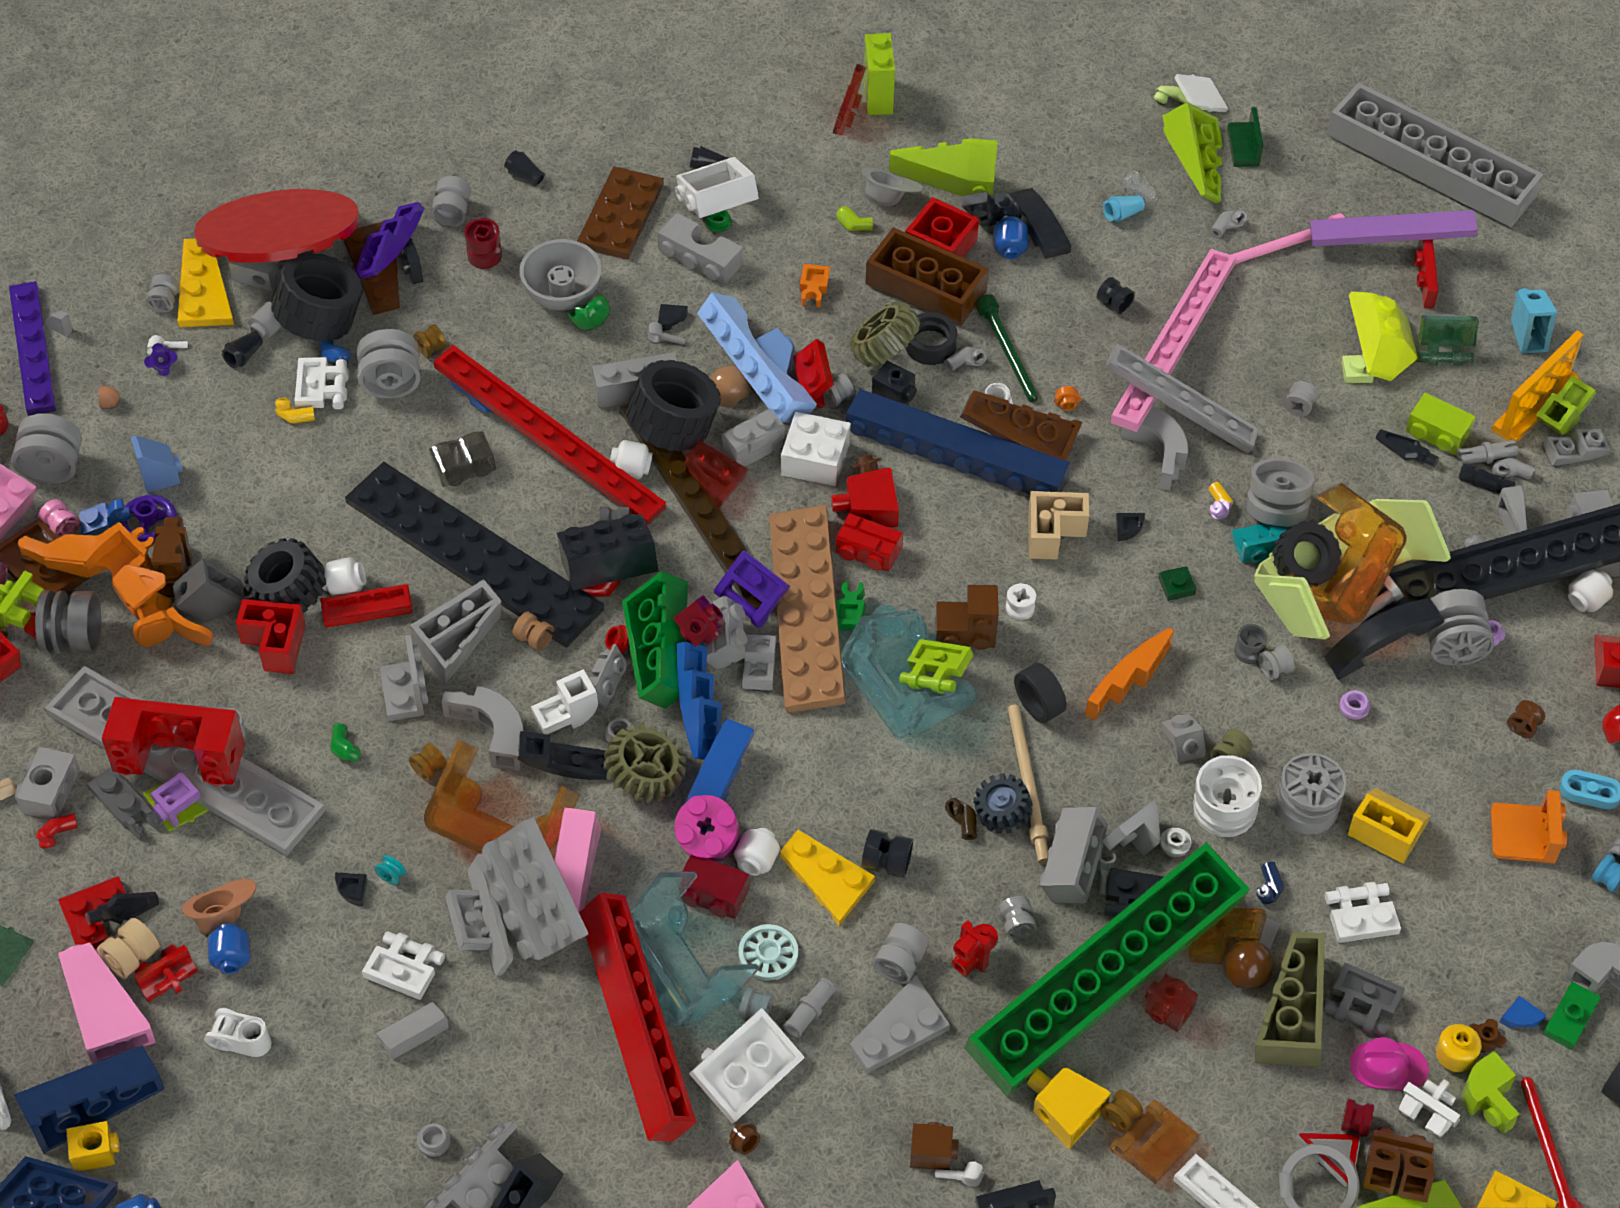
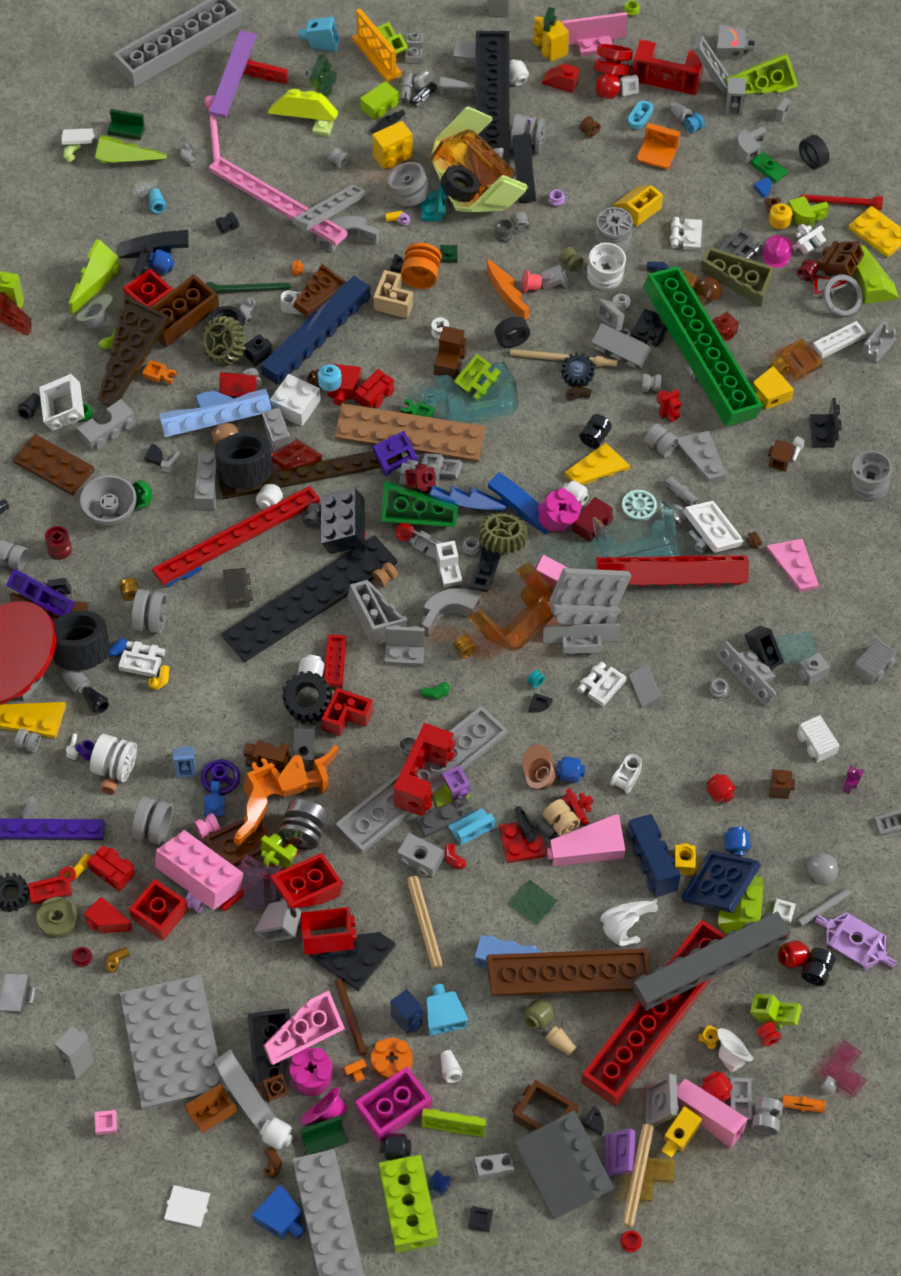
camera: 75 degrees left, 5 degrees up
(113, 842) = (472, 826): none -> medium azure panel
(141, 383) = (113, 757): none -> white wheel
(232, 1174) = (720, 788): none -> red head
(833, 232) = (133, 341): none -> dark brown wing
(851, 467) = (329, 377): none -> medium azure head
(1129, 542) = (421, 265): none -> orange wheel
(1160, 702) = (531, 281): none -> coral piece
(1348, 453) = (392, 145): none -> yellow brick

